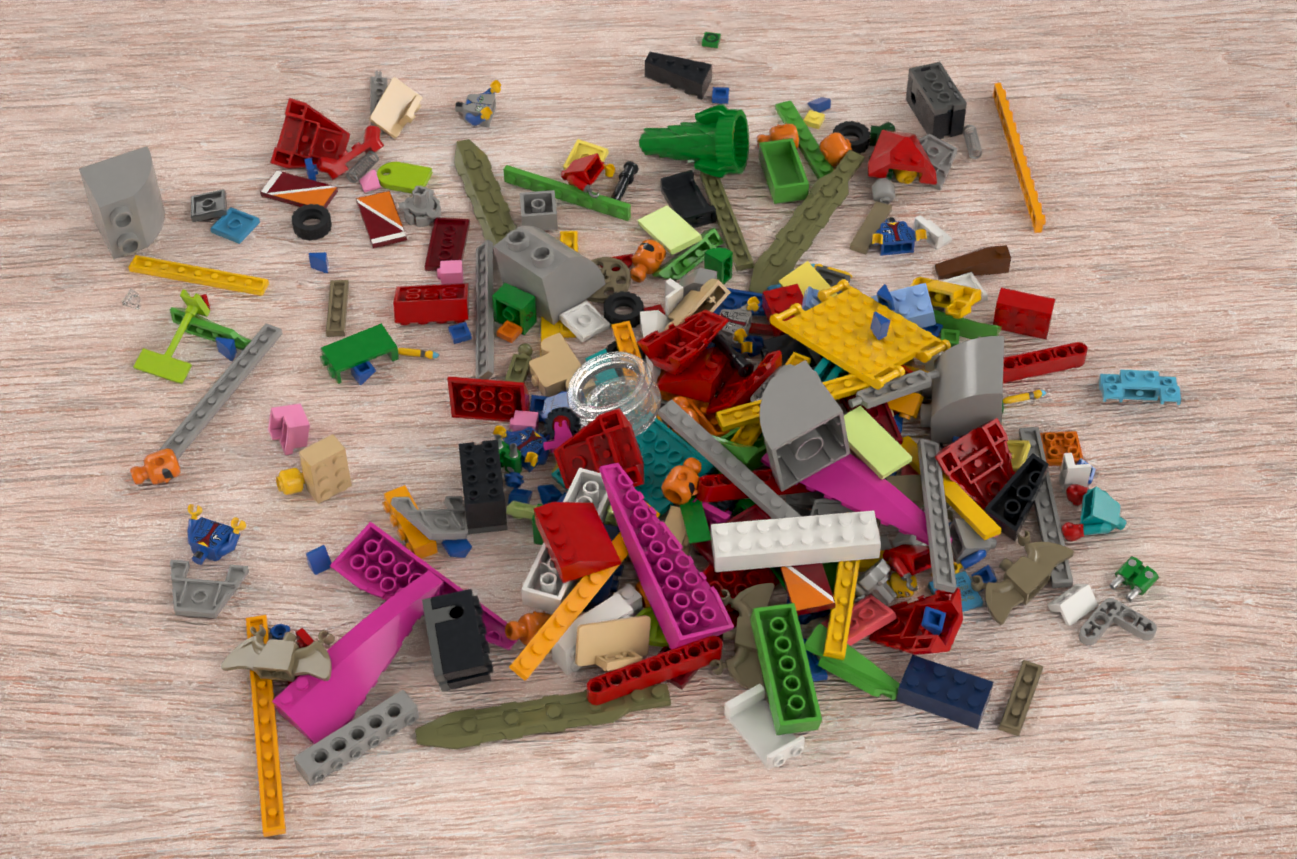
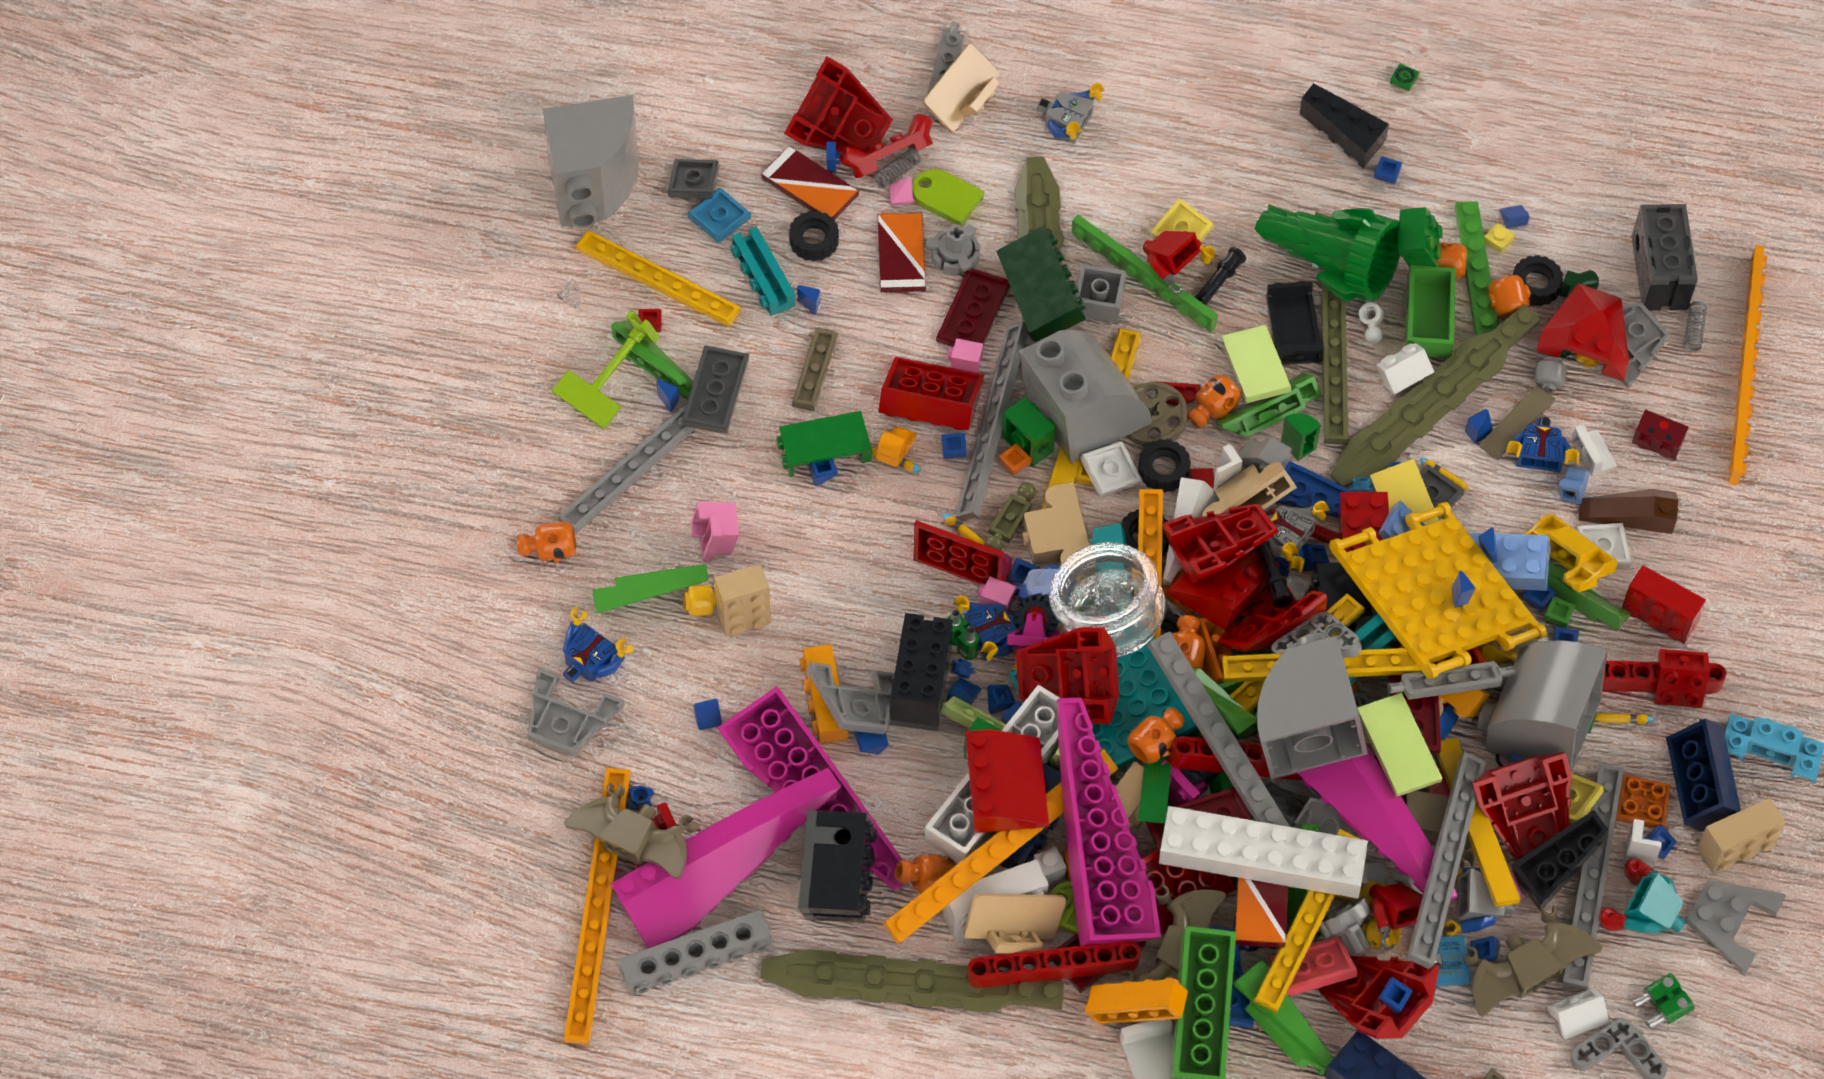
camera: 15 degrees right, 10 degrees up
(244, 479) = (647, 585): none -> bright green wedge
(263, 335) = (715, 389): none -> dark grey tile
(279, 252) = (763, 271): none -> teal brick
(414, 342) = (895, 445): none -> light orange plate
(492, 208) = (1042, 283): none -> dark green brick
(731, 677) = (1136, 1001): none -> light orange brick
(747, 196) = (1373, 333): none -> white plate
(761, 120) = (1419, 237): none -> green brick
(778, 208) = (1404, 368): none -> white brick
(844, 234) = (1479, 426): none -> blue slope
(927, 251) = (1576, 481): none -> medium blue leg
(975, 211) = (1660, 434): none -> dark red brick
(1057, 358) = (1682, 678): none -> red bracket
(1099, 416) = (1703, 774): none -> dark blue brick
(1143, 449) = (1741, 835): none -> tan brick
(1149, 507) = (1721, 912): none -> light grey wing

